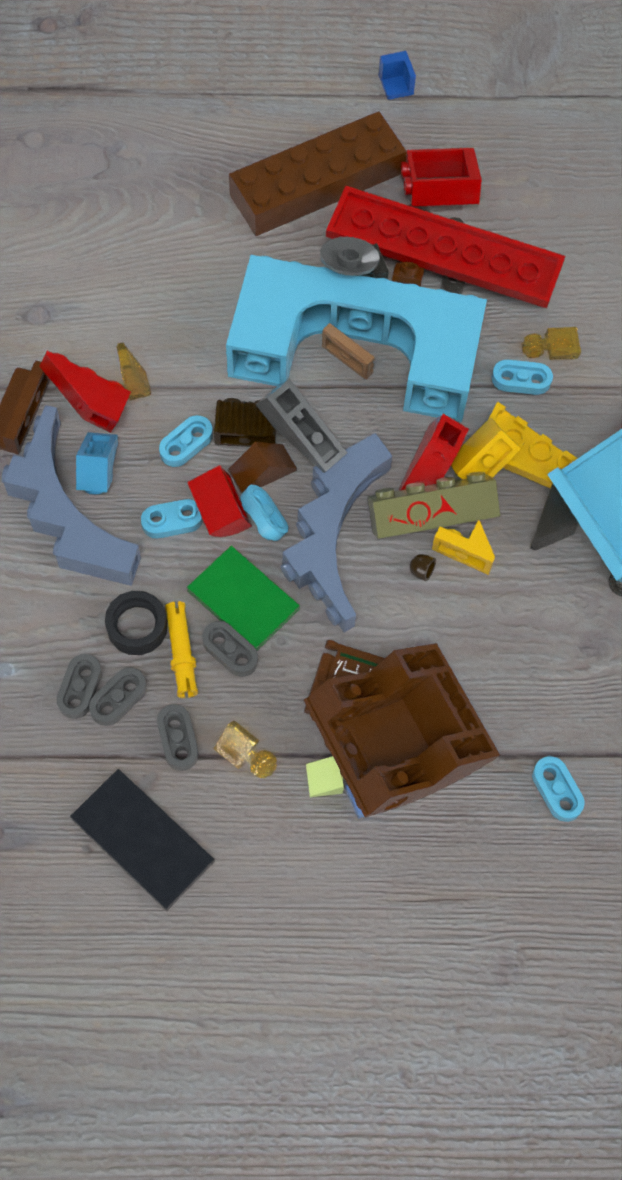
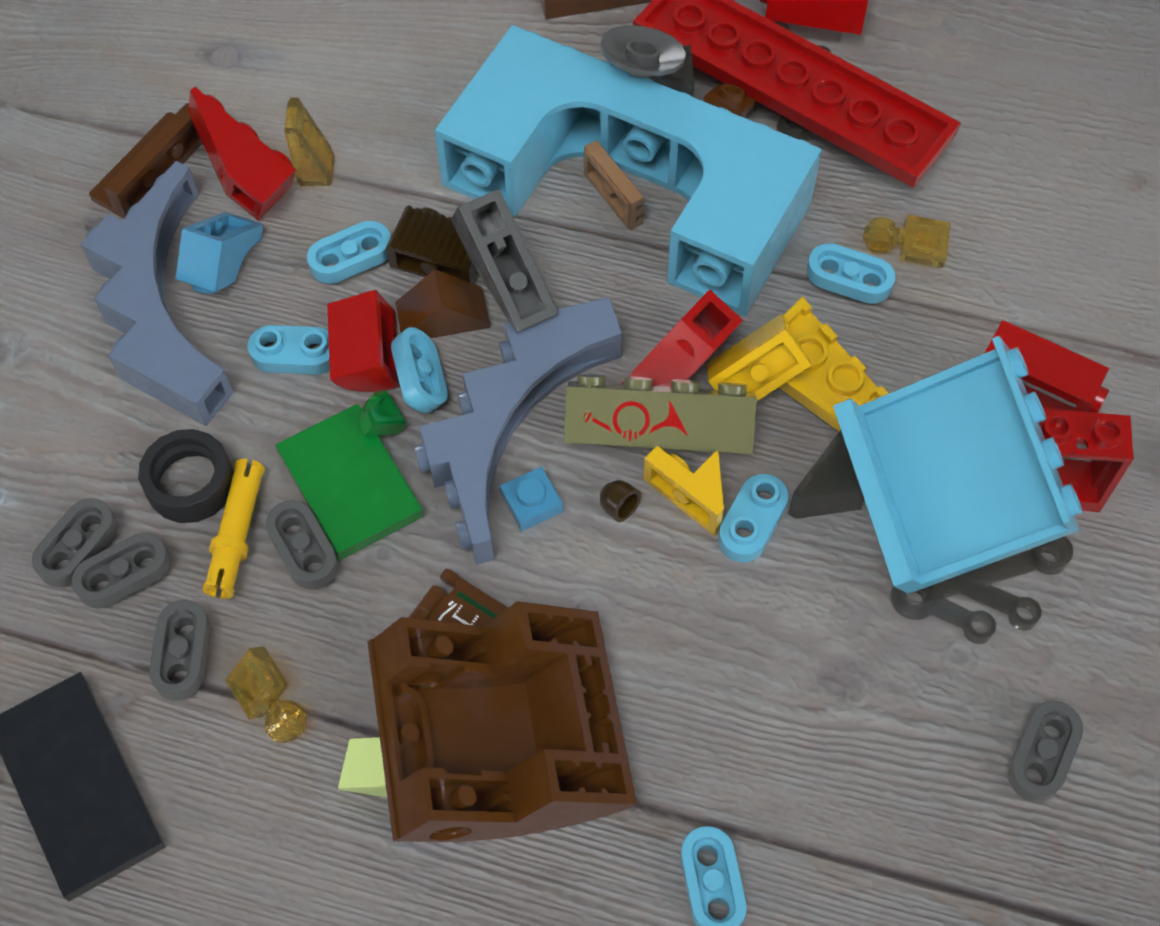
camera: 20 degrees right, 5 degrees down
(249, 549) = (381, 416): none -> green tile
(366, 580) = (531, 498): none -> dark azure plate
(510, 554) = (756, 515): none -> medium azure plate

